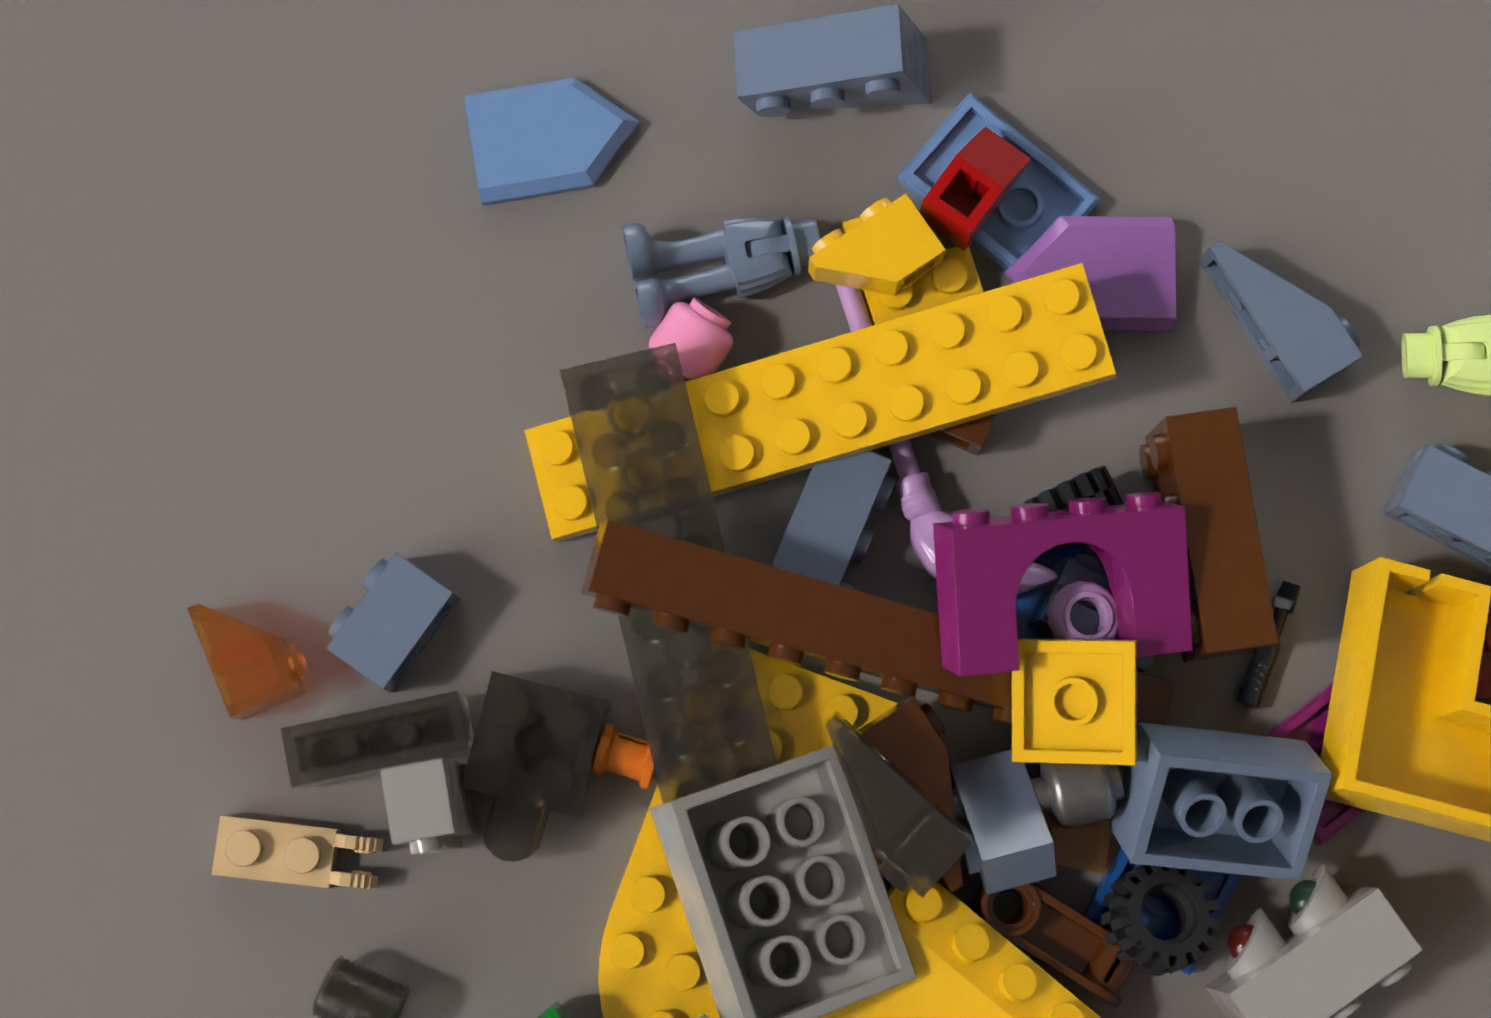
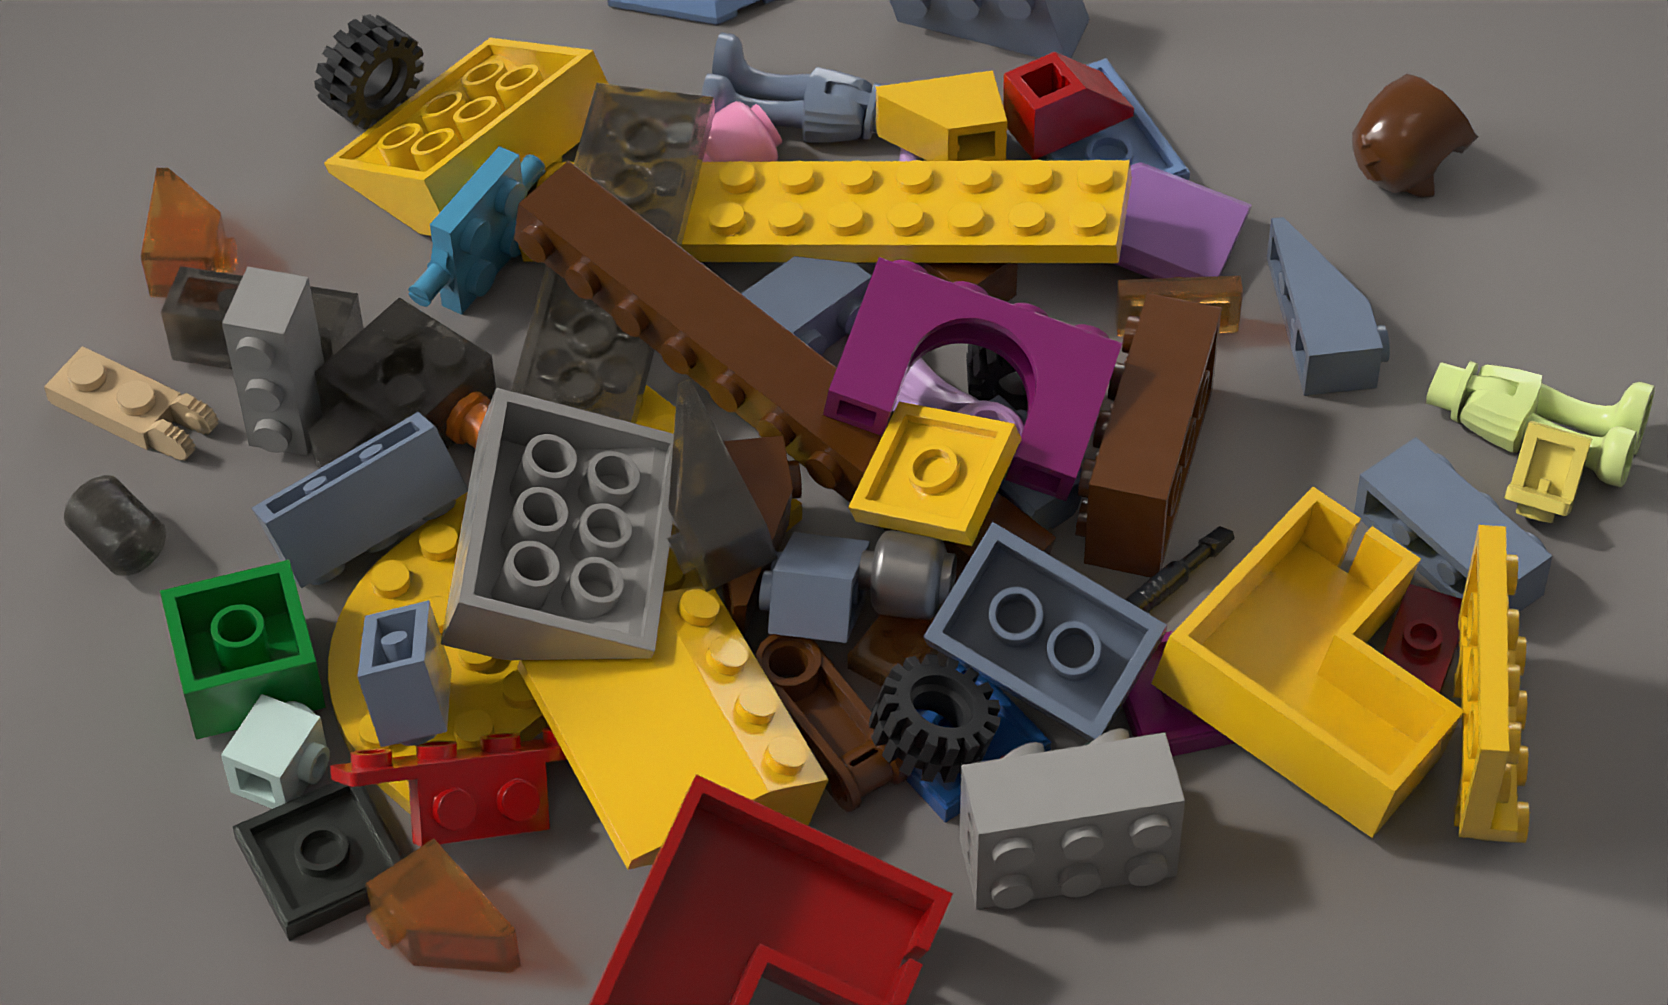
camera: 25 degrees right, 30 degrees down
(319, 406) = (368, 70): none -> black tyre
(390, 621) = (340, 247): sand blue brick -> none
(444, 424) = (495, 96): none -> yellow slope
(520, 578) = (477, 232): none -> dark azure plate
(567, 899) = (361, 500): none -> sand blue brick
(1158, 361) = (1213, 291): none -> clear orange plate
(1283, 93) = (1409, 135): none -> reddish brown piece

